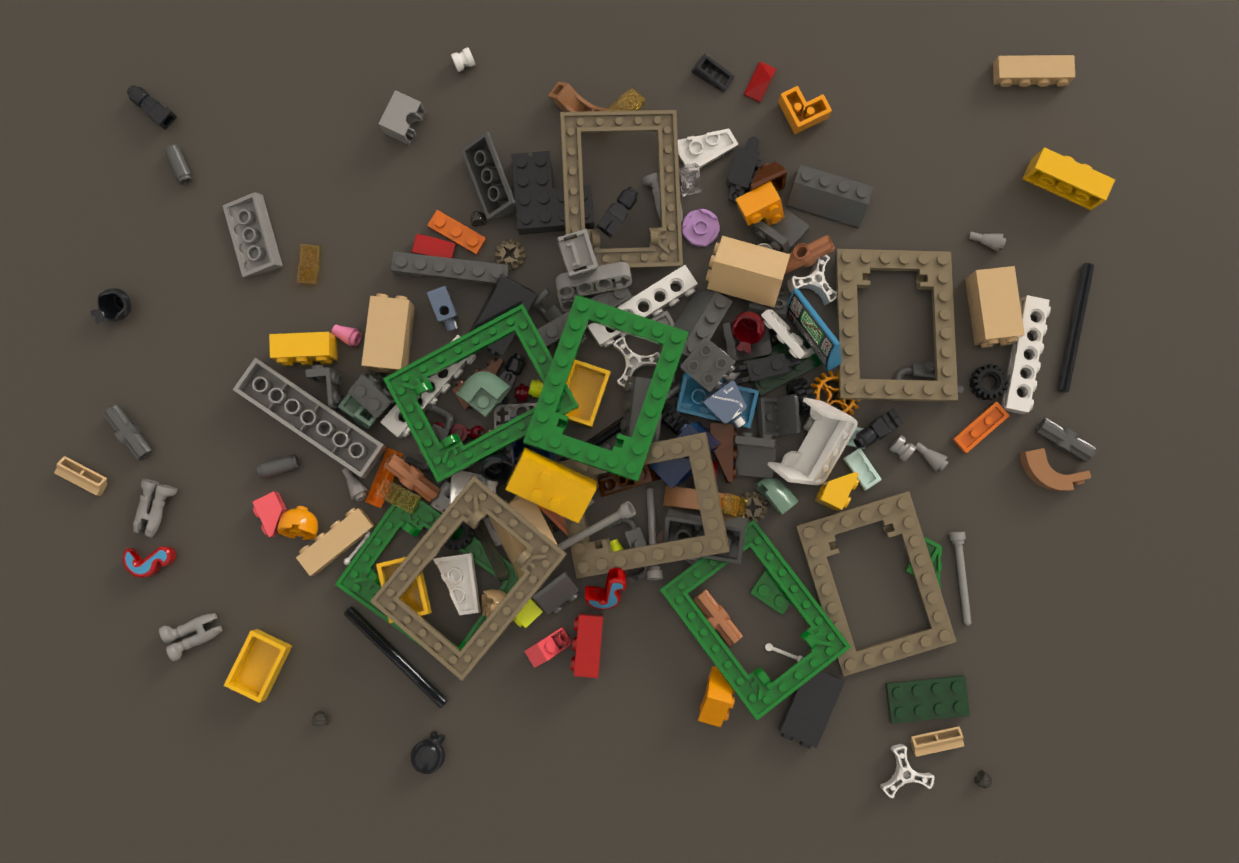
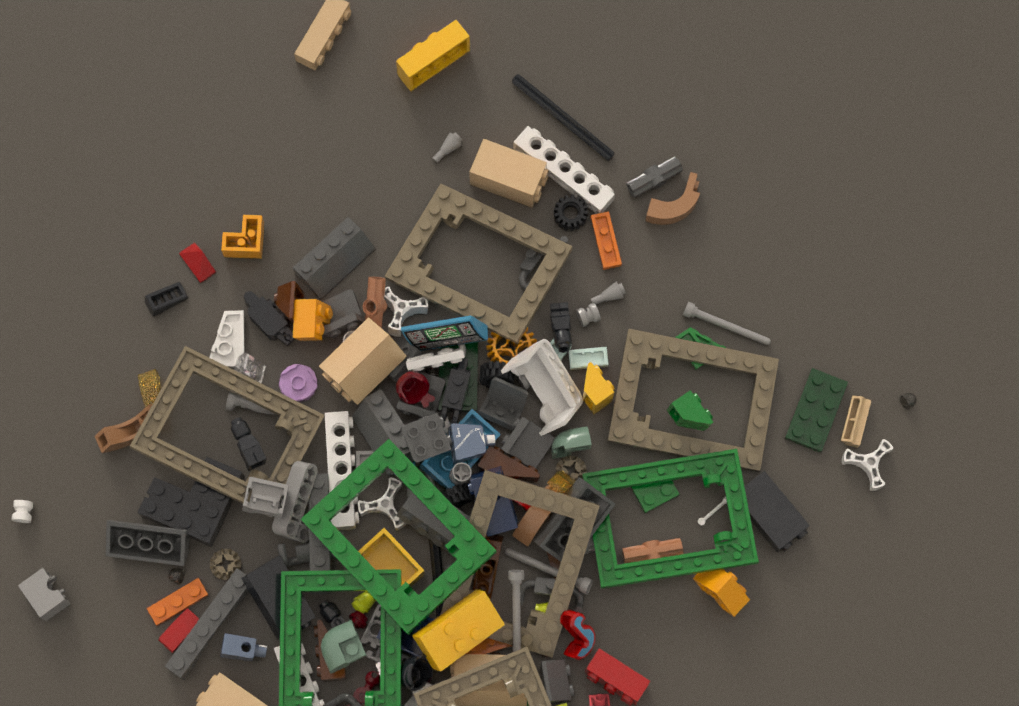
camera: 60 degrees left, 10 degrees down
(693, 411) = (463, 472): none -> light grey wheel
(860, 588) = (689, 412): none -> green slope

